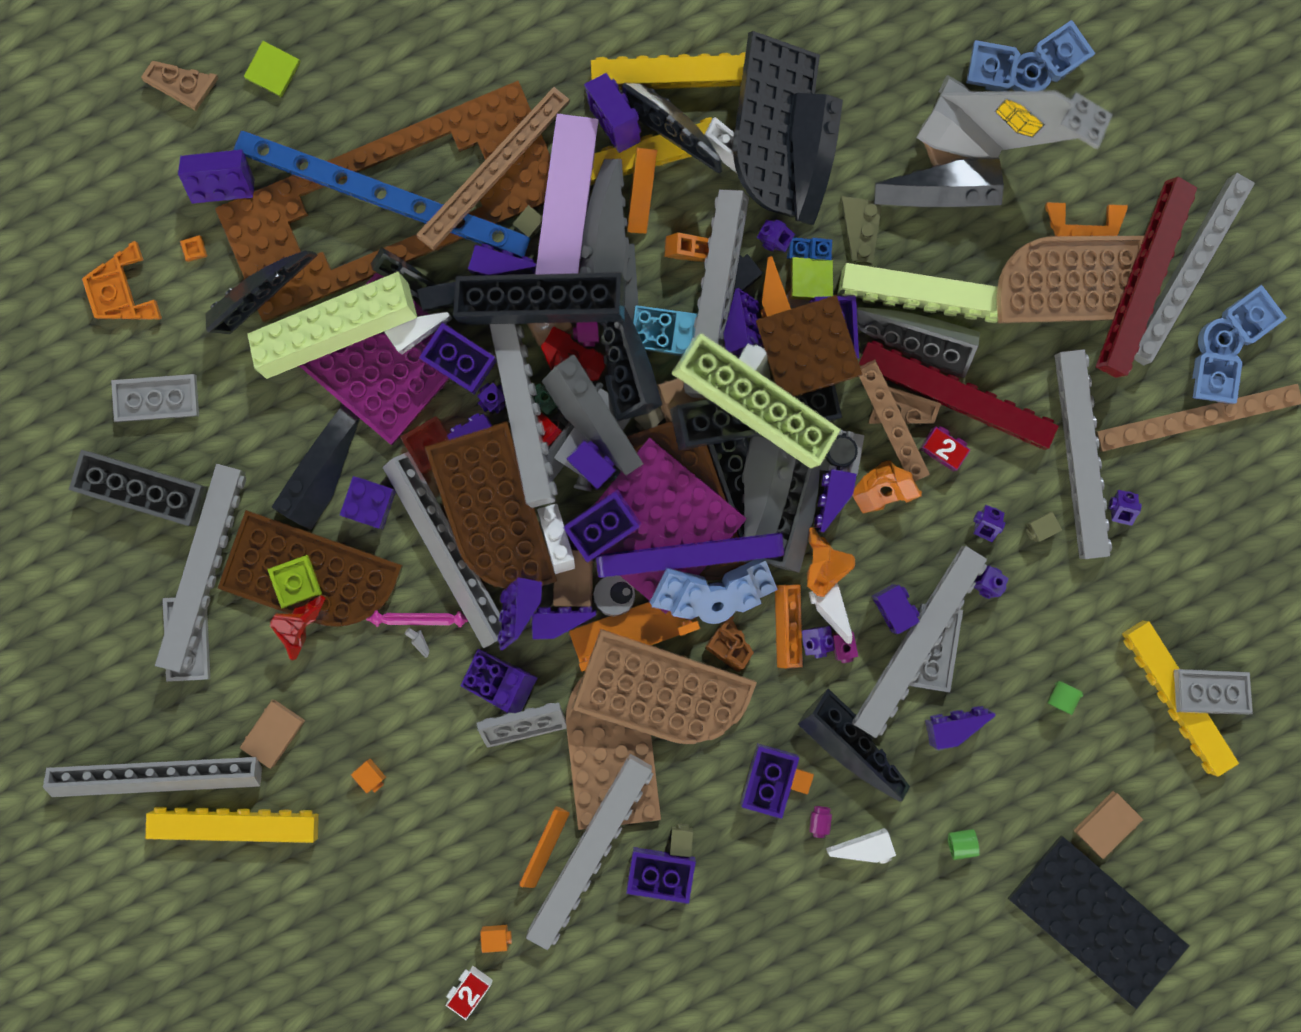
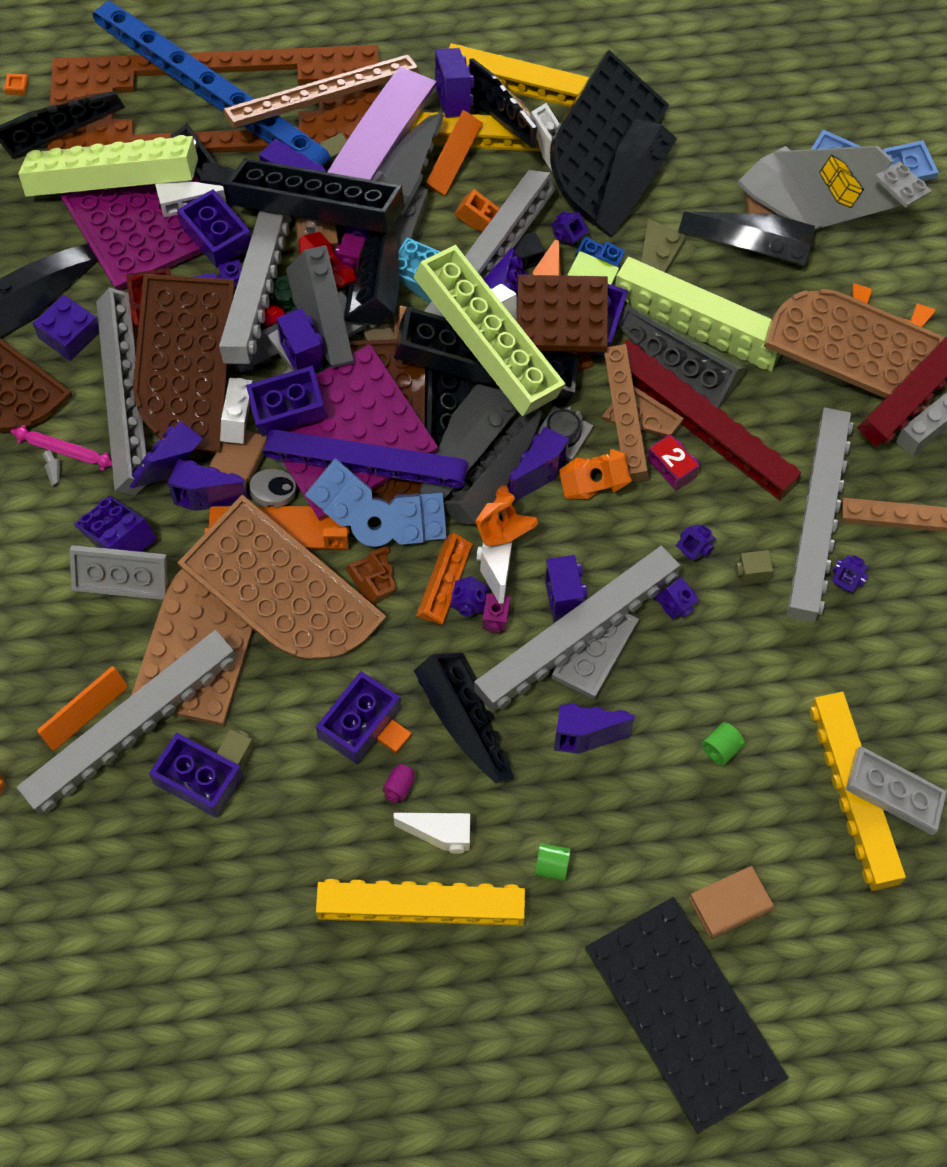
camera: 20 degrees right, 25 degrees down
(216, 176) = (66, 28): dark purple brick -> none
(874, 911) = (420, 903): none -> yellow brick

